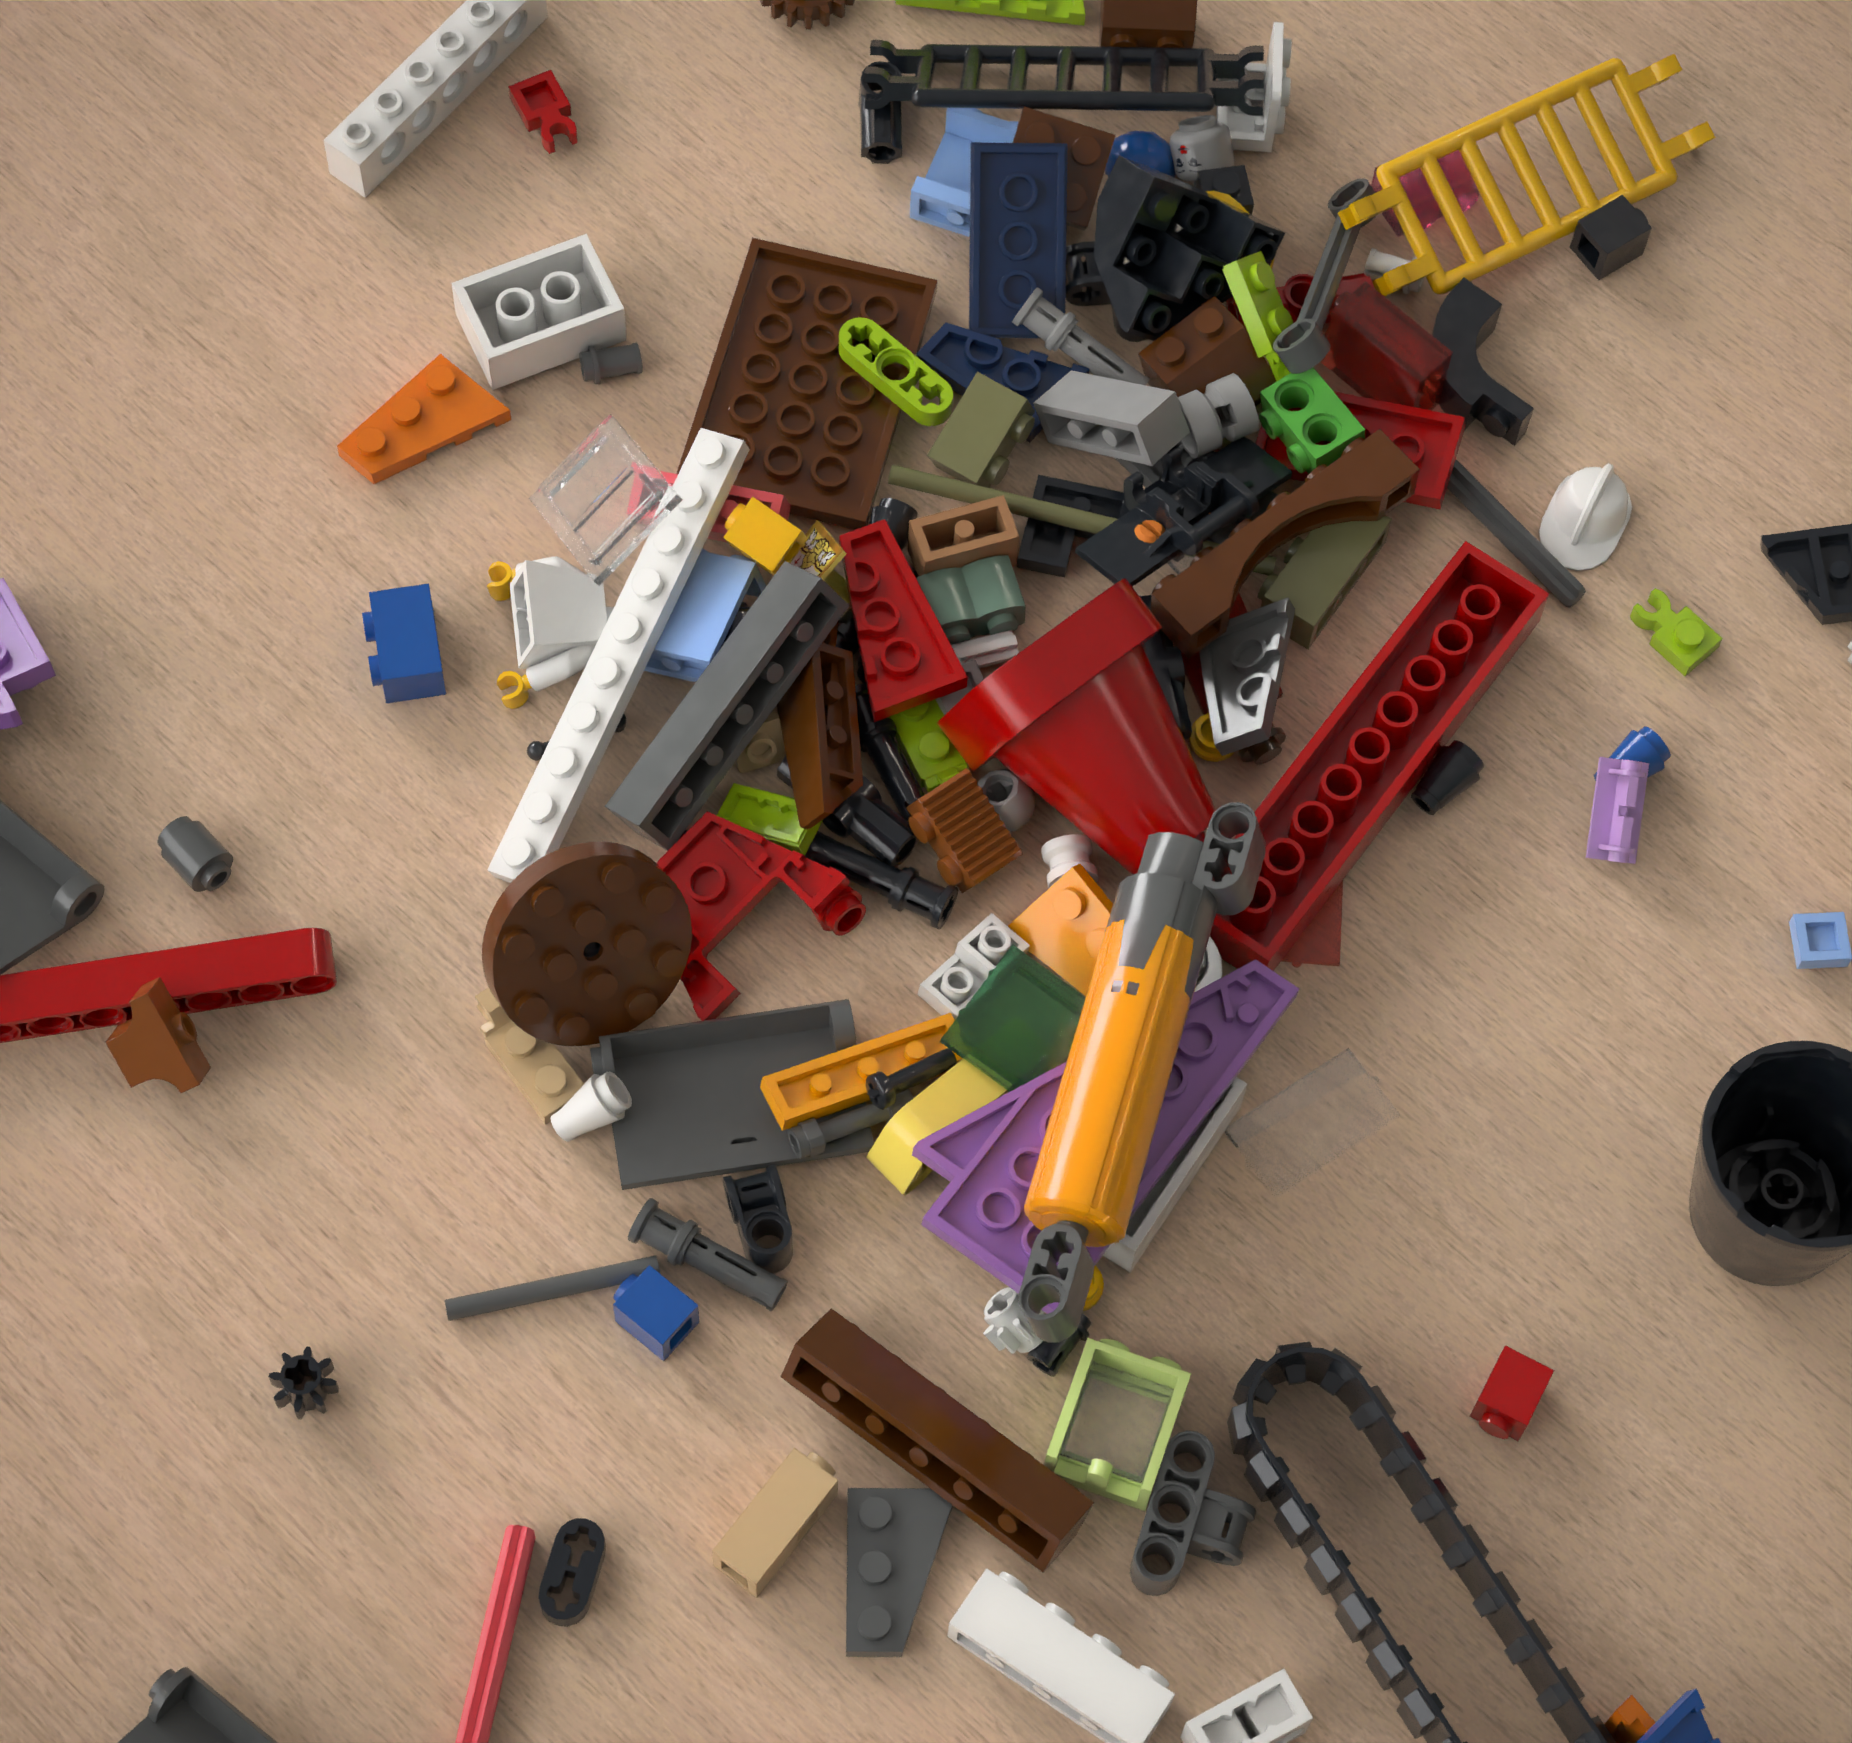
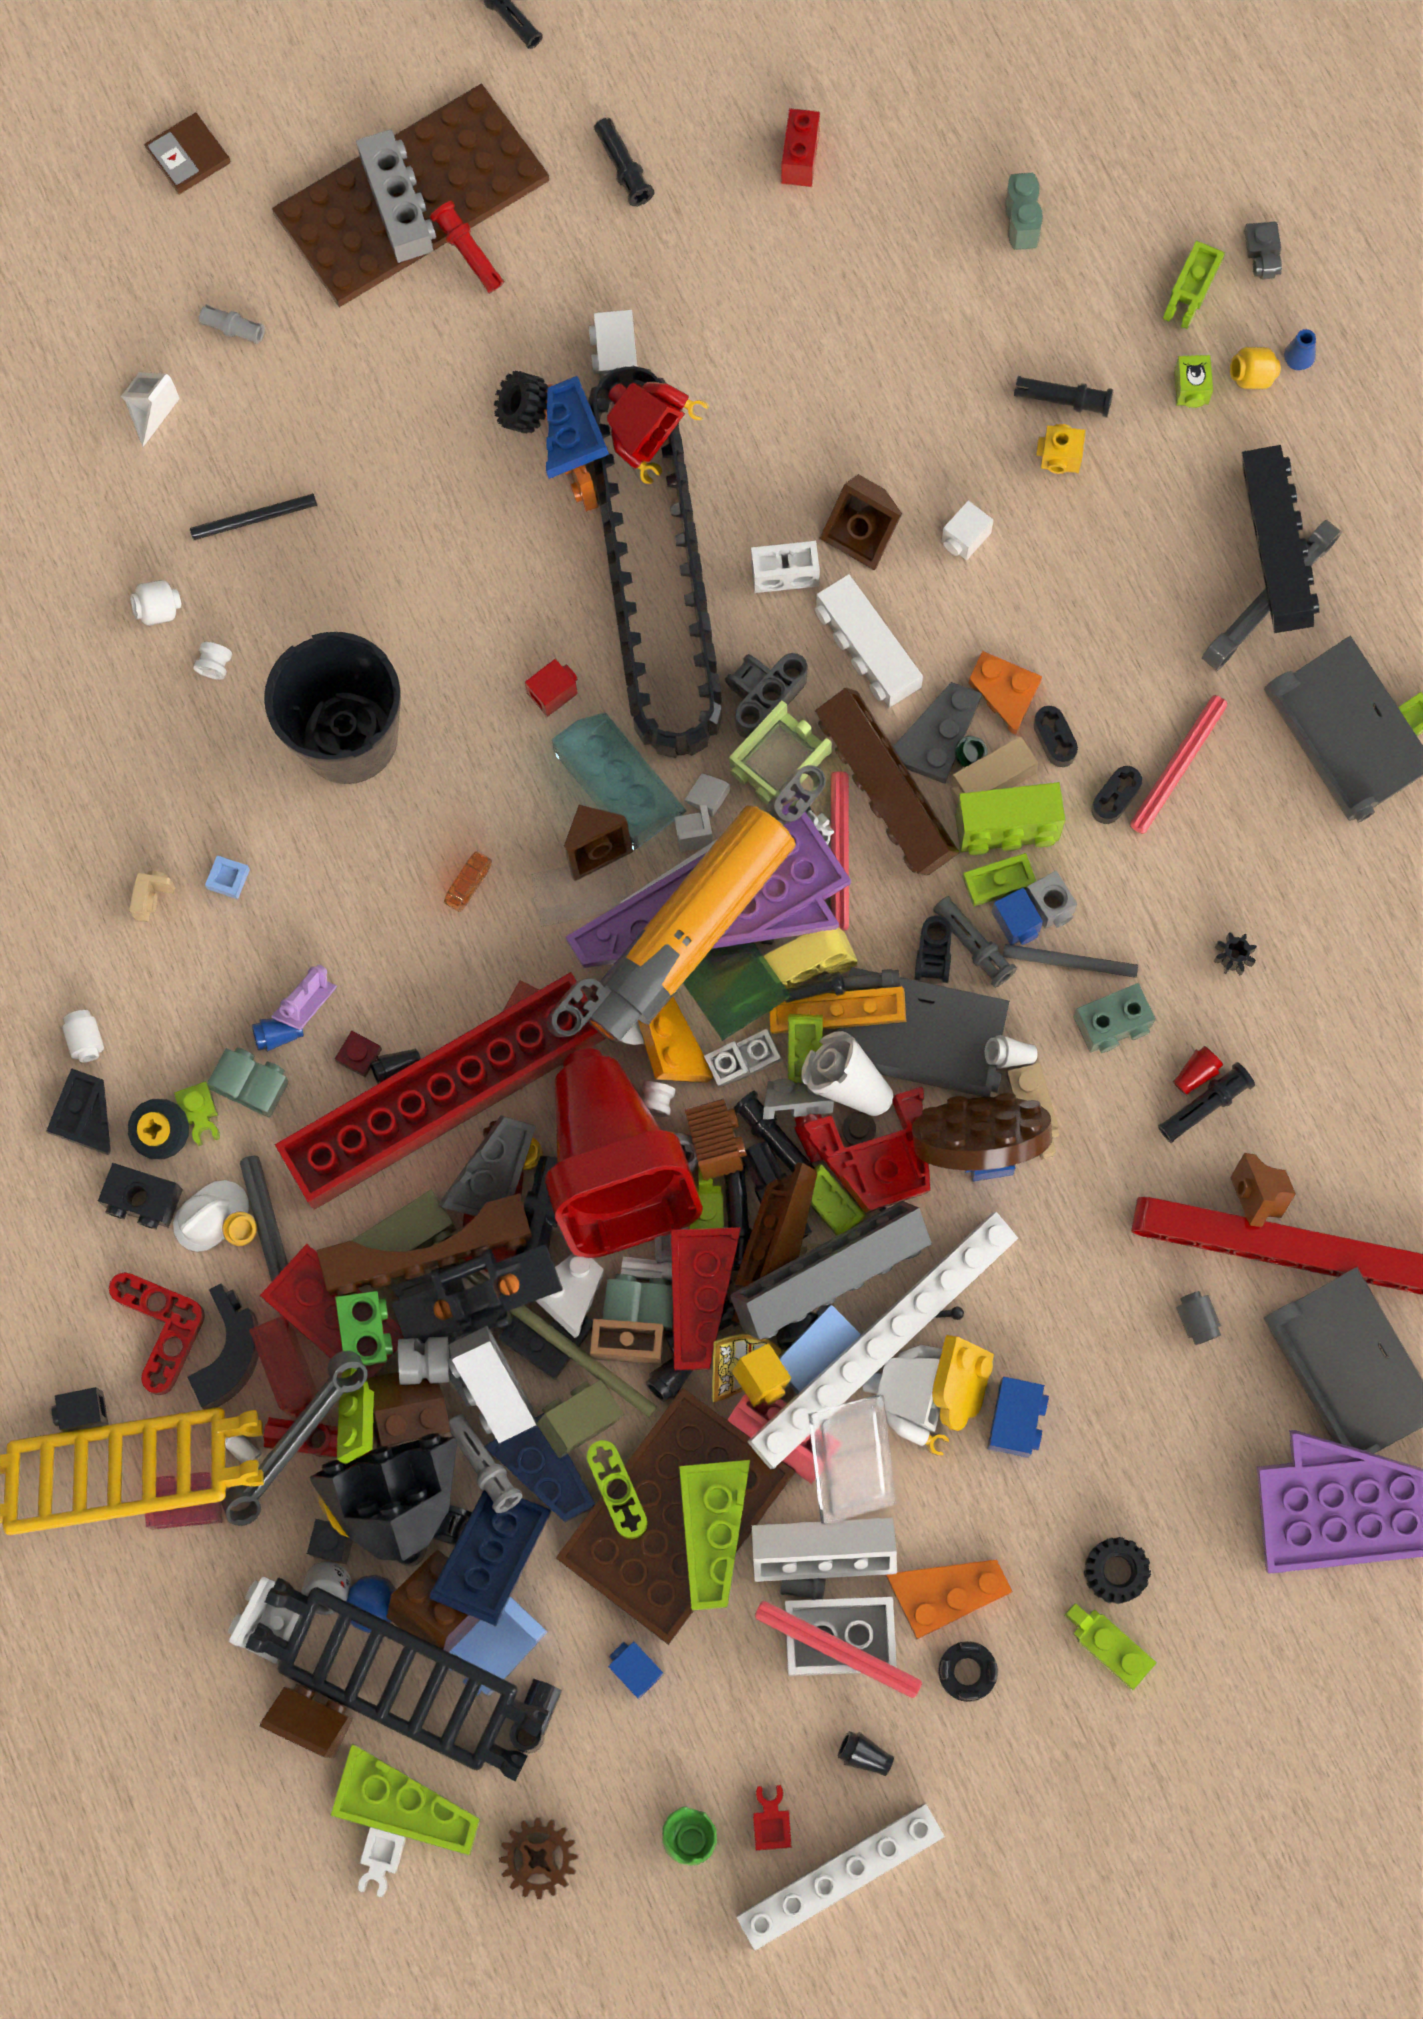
camera: 150 degrees left, 10 degrees up
(188, 434) = (1110, 1646): none -> lime hinge
(203, 491) = (1133, 1555): none -> black tyre
(268, 1174) = (1219, 1094): none -> black pin
(304, 1193) = (1198, 1070): none -> red cone
(356, 321) = (987, 1665): none -> black piece
(455, 1217) = (1114, 1019): none -> sand green brick
(460, 211) = (864, 1754): none -> black cone
(496, 650) = (961, 1381): none -> yellow plate
(534, 272) = (838, 1649): none -> coral axle
(617, 1379) = (1052, 886): none -> light grey brick
(624, 388) = (824, 1551): none -> white brick
(637, 55) = (689, 1836): none -> bright green hair
(704, 1362) = (998, 879): none -> lime plate
(712, 1621) = (1062, 733): none -> black beam
(722, 1442) = (1010, 818): none -> lime brick
(756, 373) = (712, 1520): none -> lime wing
(768, 933) = (858, 1128): none -> dark brown plate
(781, 201) = (634, 1668): none -> blue brick
(813, 1680) = (1005, 688): none -> orange wing
(815, 964) = (846, 1075): none -> white cone
(826, 1548) = (970, 750): none -> dark green plate
(872, 927) = (786, 1095): none -> light grey wing
(890, 1003) = (803, 1036): none -> lime plate
(965, 1324) = (840, 842): none -> coral axle
(1059, 575) = (579, 1280): none -> white wing
(1192, 1260) = (694, 830): none -> white panel
(1199, 1328) = (708, 791): none -> white slope
(1335, 1169) = (596, 840): none -> reddish brown slope
(1343, 1293) = (617, 776): none -> clear light blue slope
(1482, 1061) = (468, 881): none -> clear orange beam
(1507, 782) = (358, 1053): none -> dark red plate
(1538, 507) = (239, 1228): none -> yellow plate
(1556, 375) = (172, 1328): none -> red beam
(1632, 683) = (248, 1081): none -> sand green brick
(1667, 512) = (125, 1182): none -> black brick
(1714, 584) = (171, 1129): none -> black wheel

